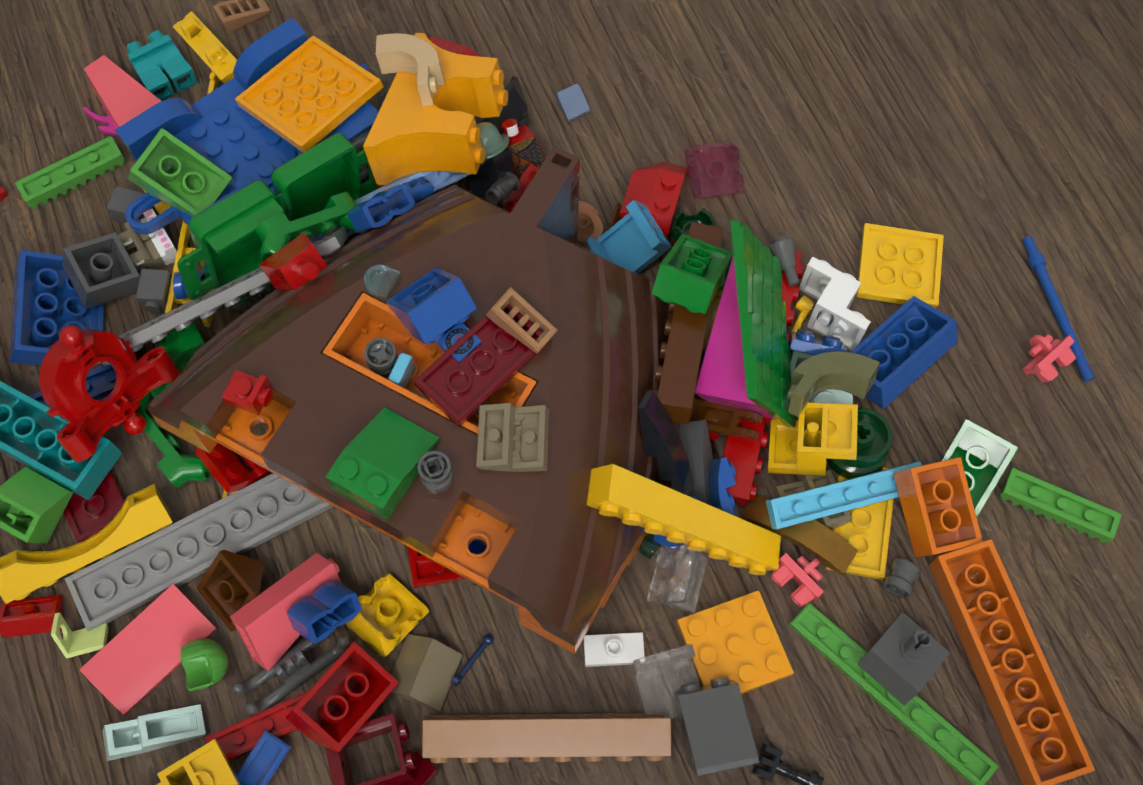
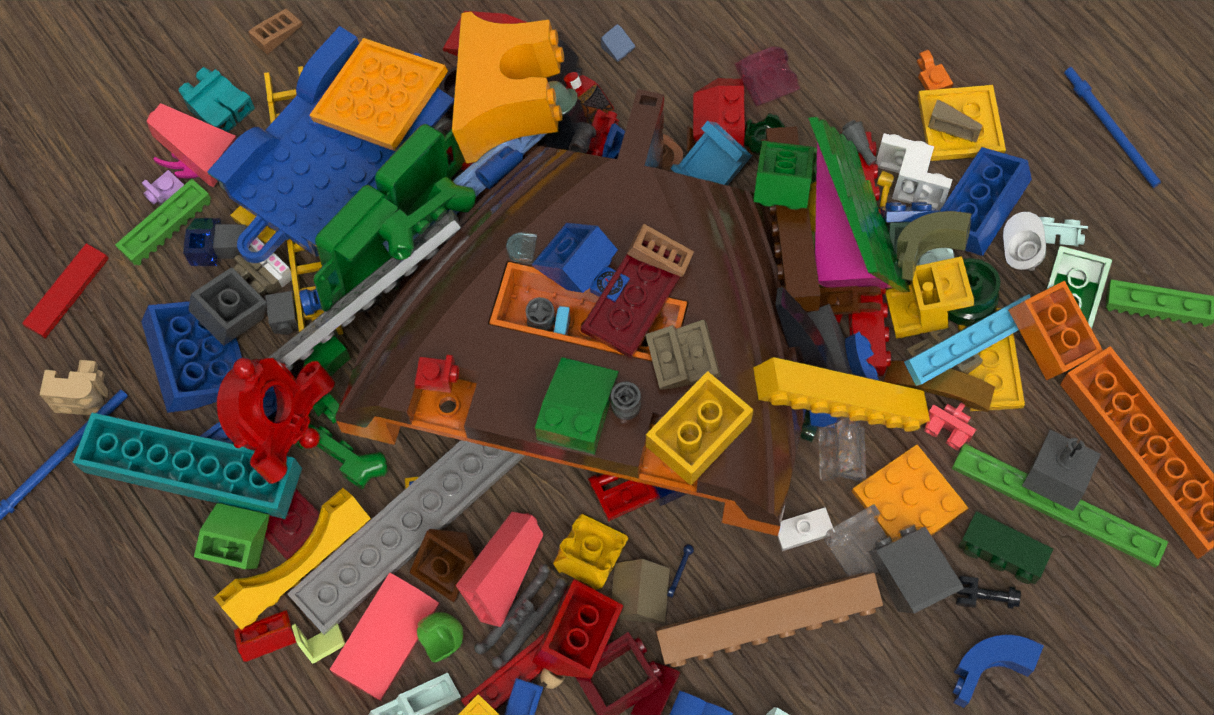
camera: 10 degrees left, 0 degrees up
(80, 138) = (162, 188): none -> lavender bracket
(94, 198) = (199, 242): none -> clear blue slope
(178, 175) = (280, 199): bright green slope -> none
(207, 46) = (257, 72): yellow hinge -> none
(229, 470) = (405, 456): red plate -> none
(294, 263) = (427, 253): red torso -> none
(301, 742) = (551, 679): none -> tan hinge
(322, 612) = (538, 559): blue brick -> none
(381, 208) = (484, 184): blue brick -> none
(411, 55) = (471, 35): tan arch -> none
(502, 521) = (699, 428): none -> yellow brick
(820, 728) = (1005, 548): none -> dark green brick
(883, 211) = (932, 76): none -> orange plate
(890, 263) = (953, 122): none -> dark tan slope
(901, 578) = (1040, 401): dark grey wheel -> none
(931, 405) = (1024, 241): none -> white piece
(982, 406) = (1069, 232): none -> light aqua hinge
(1045, 353) = (1112, 169): coral hips -> none

